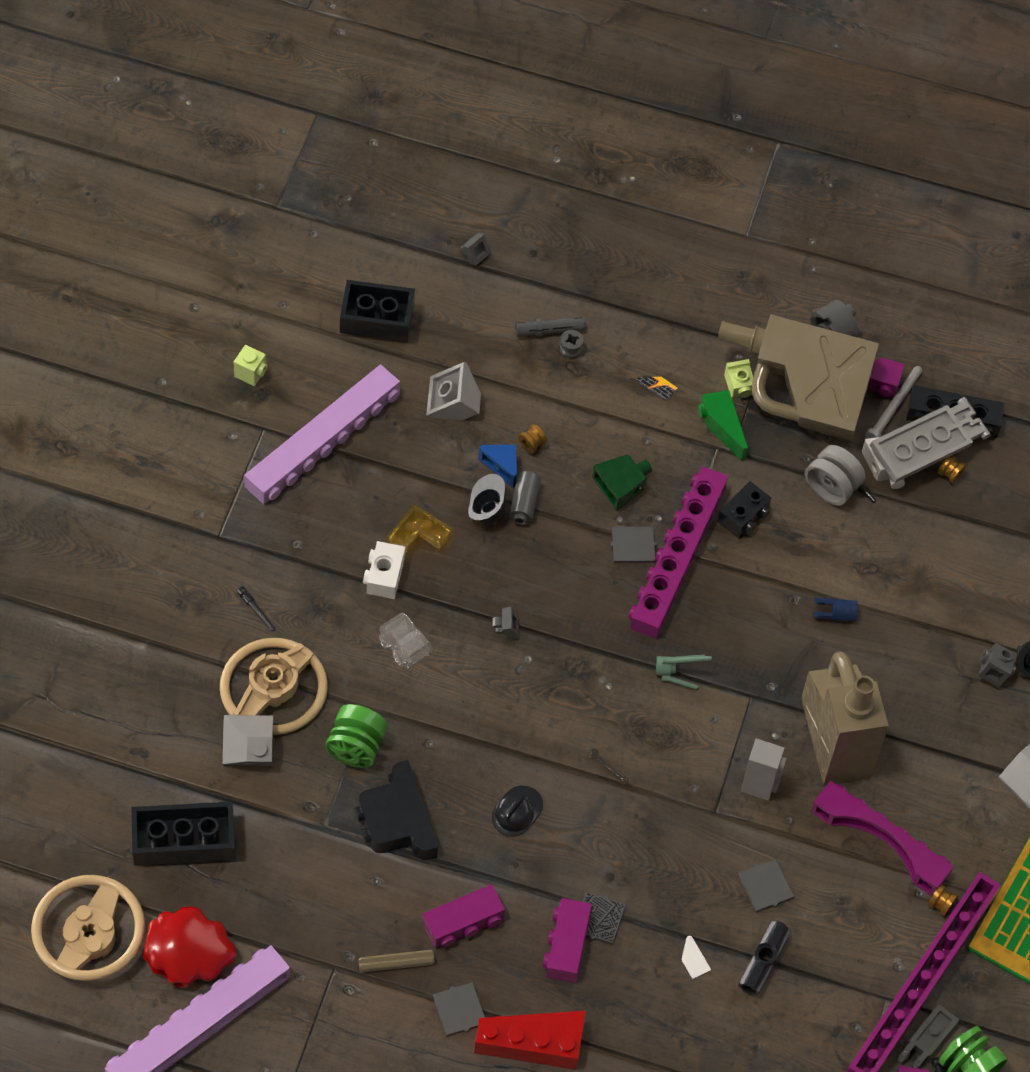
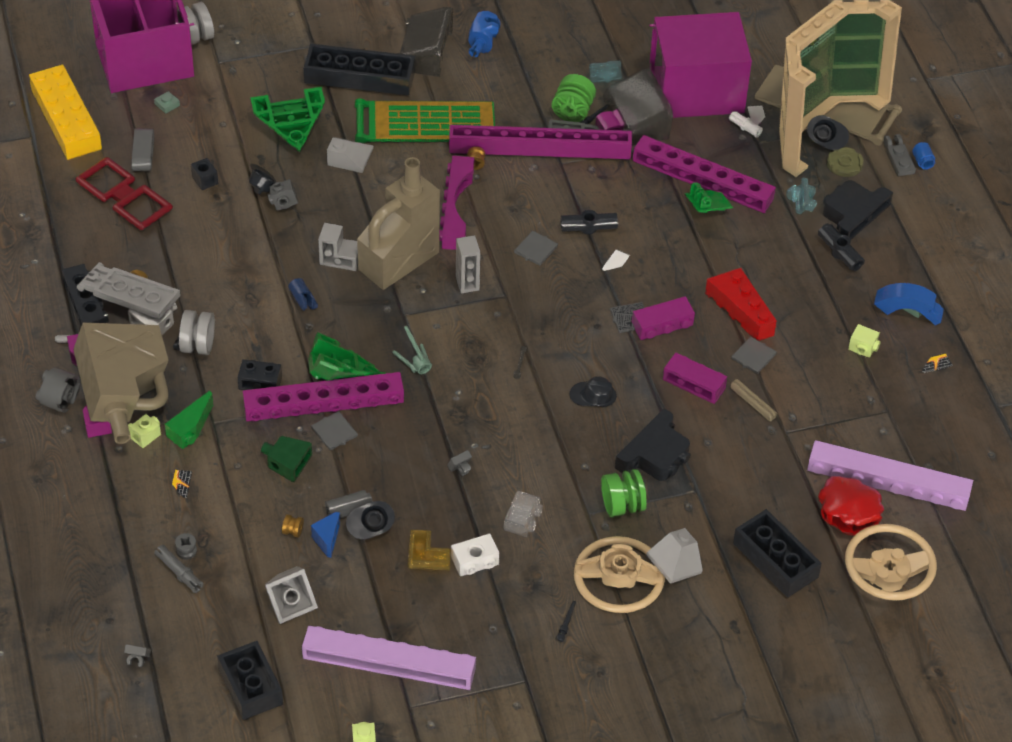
camera: 120 degrees left, 10 degrees down
(710, 583) = (333, 362): none -> green wedge
(885, 665) = (335, 250): none -> light grey brick

